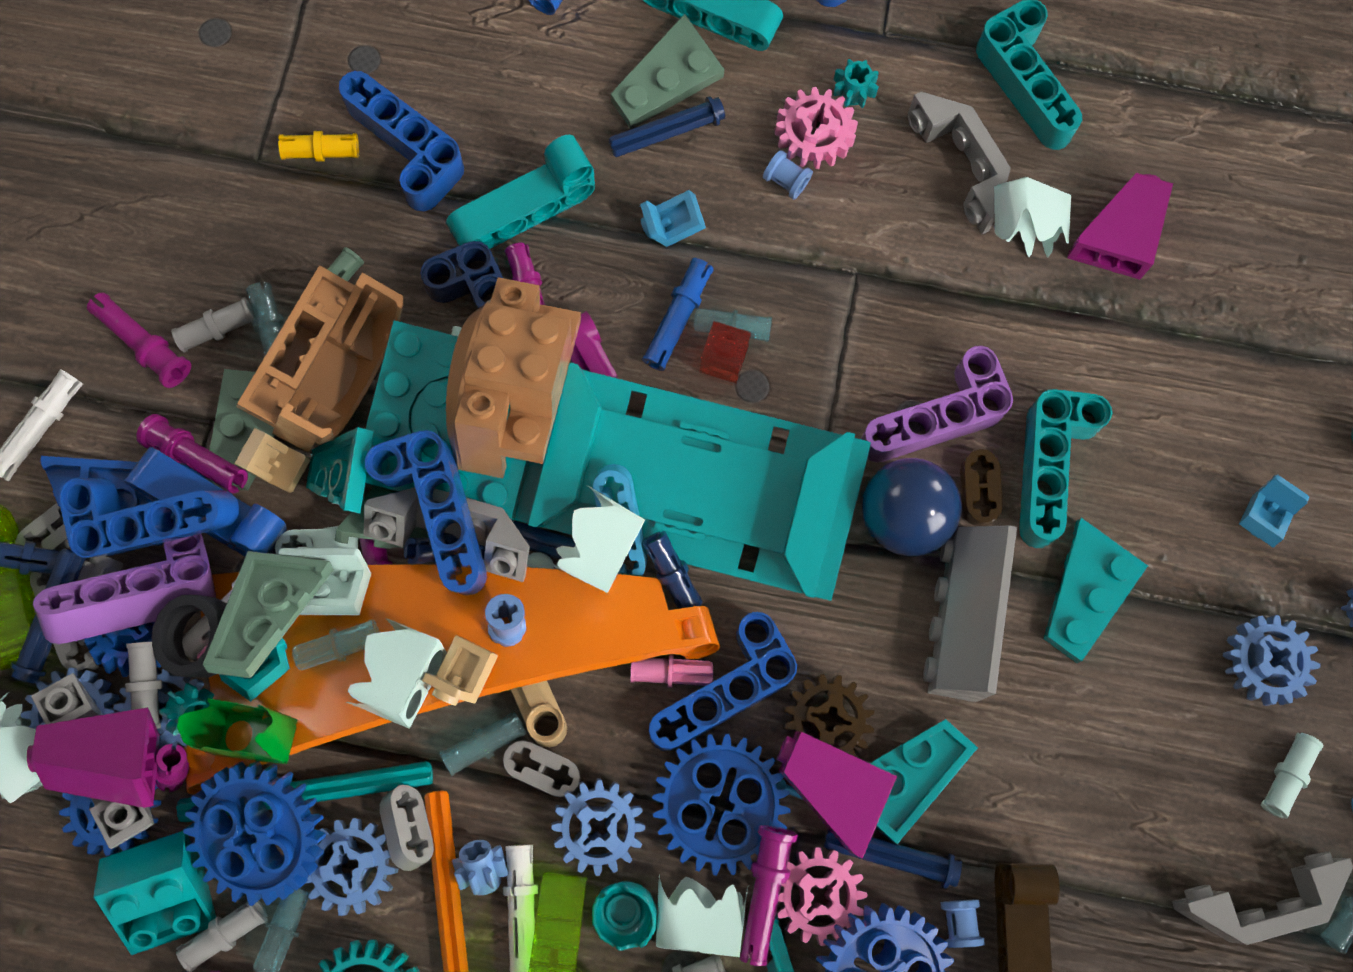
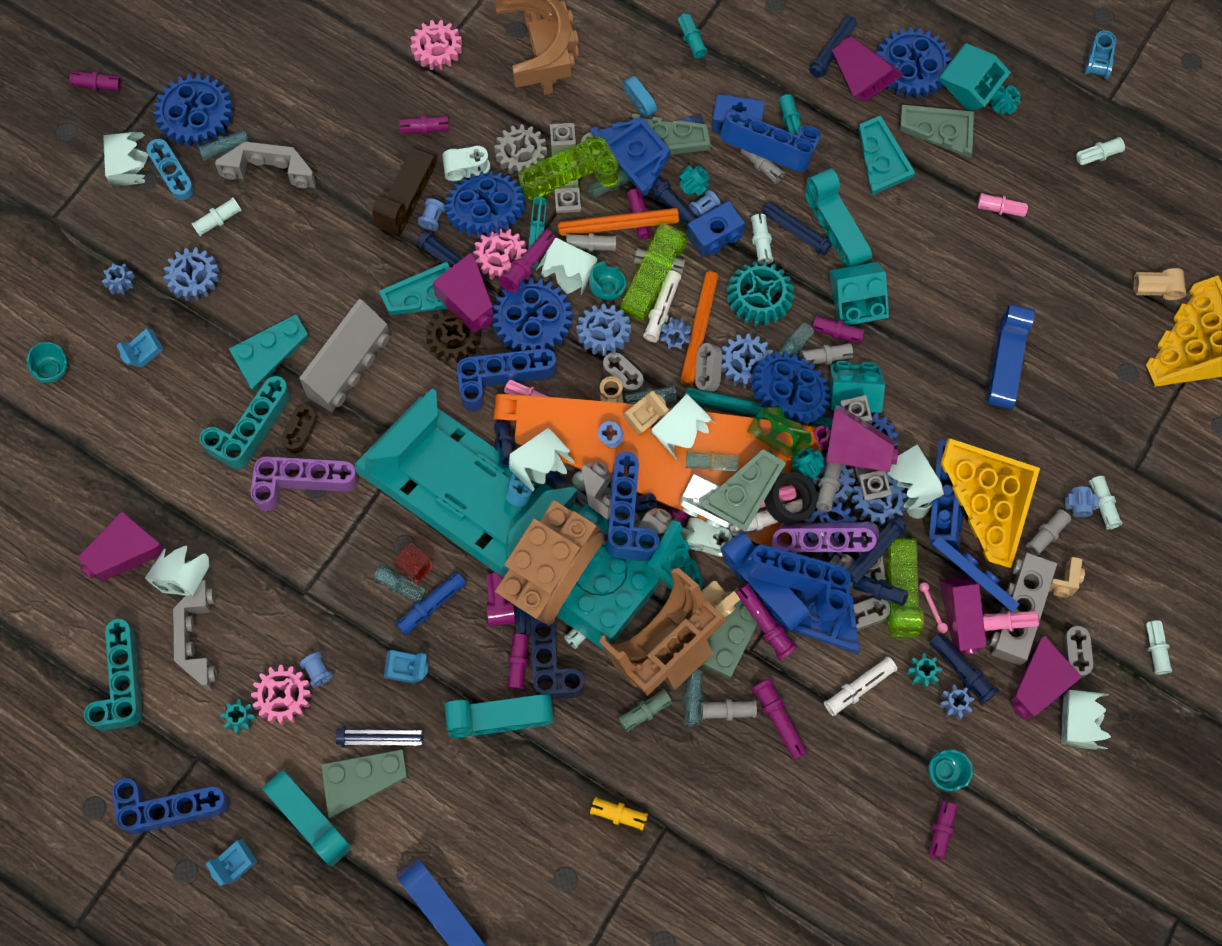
camera: 155 degrees left, 5 degrees down
(398, 132) = (562, 800): blue beam -> none
(911, 507) = (349, 422): dark blue piece -> none

